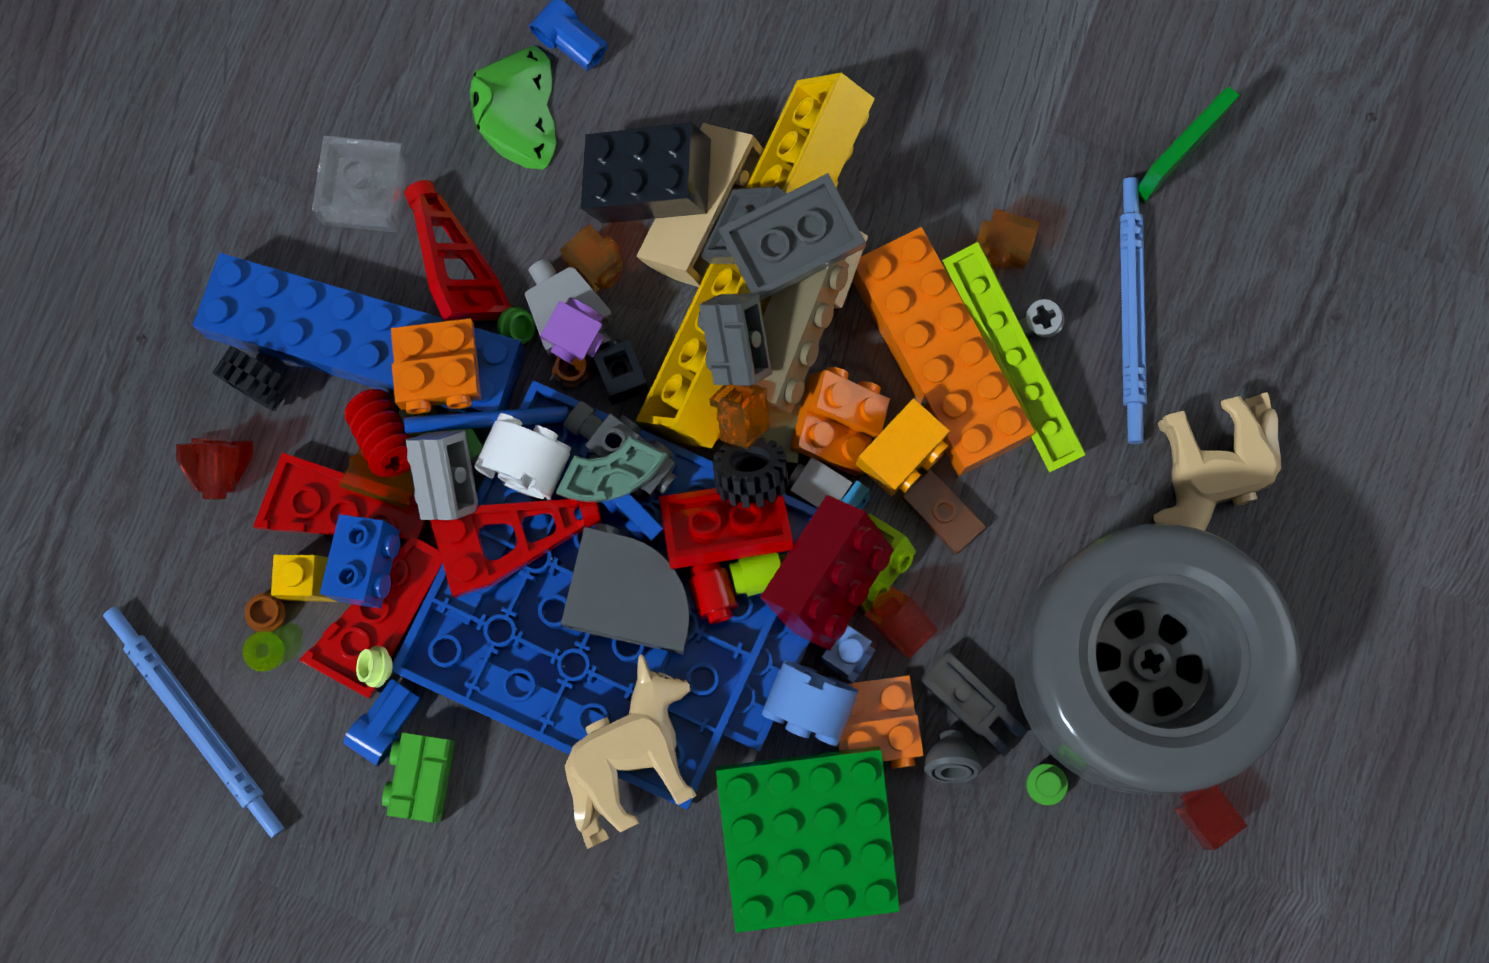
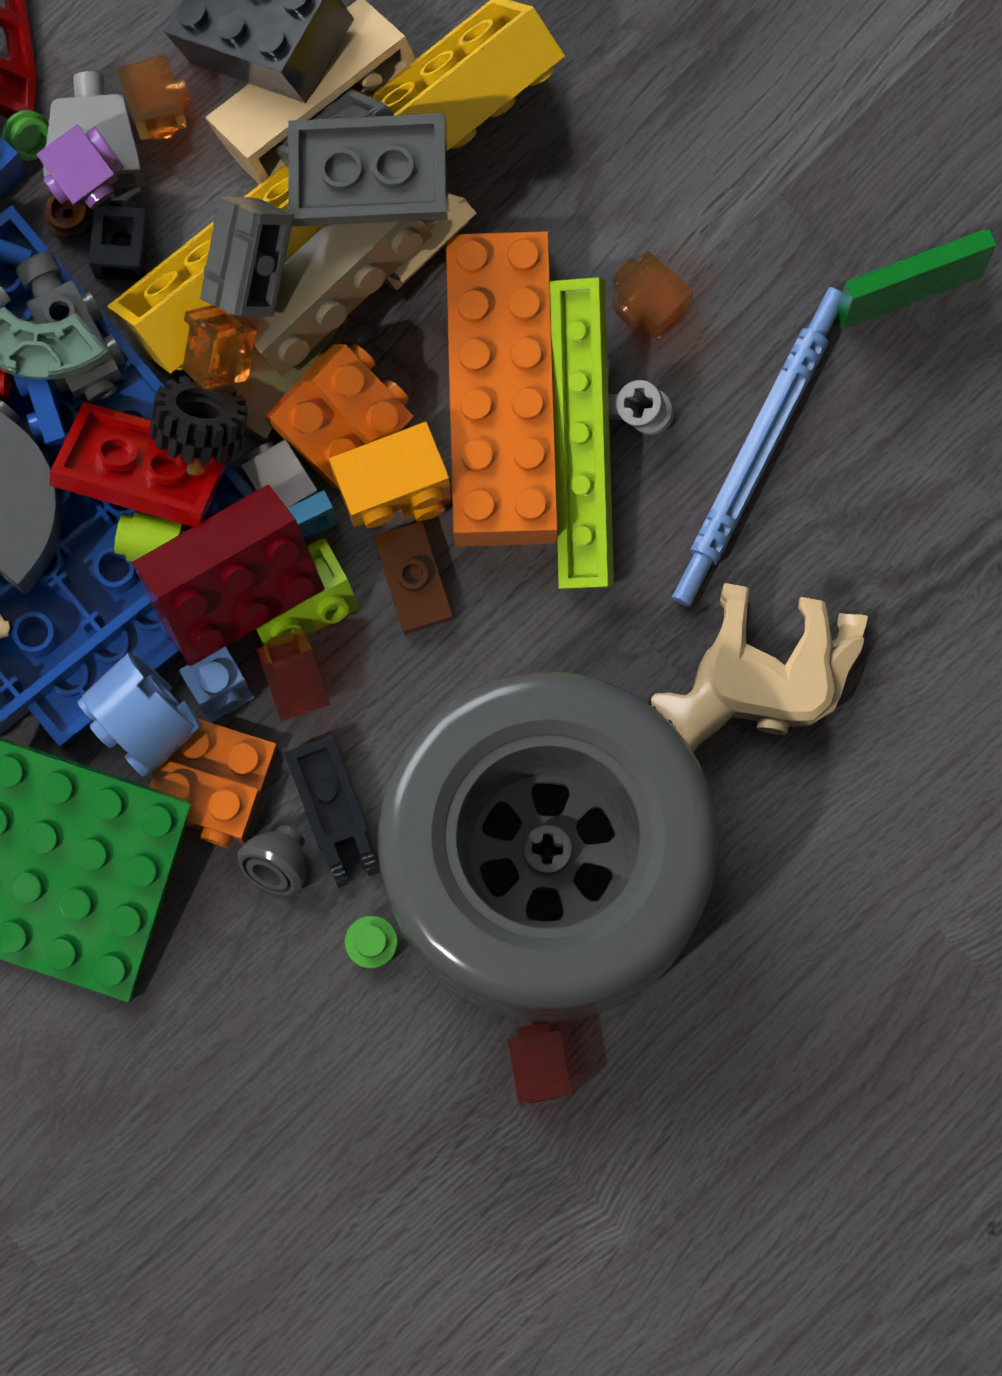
camera: 30 degrees right, 0 degrees up
(712, 592) = (89, 537): red brick -> none

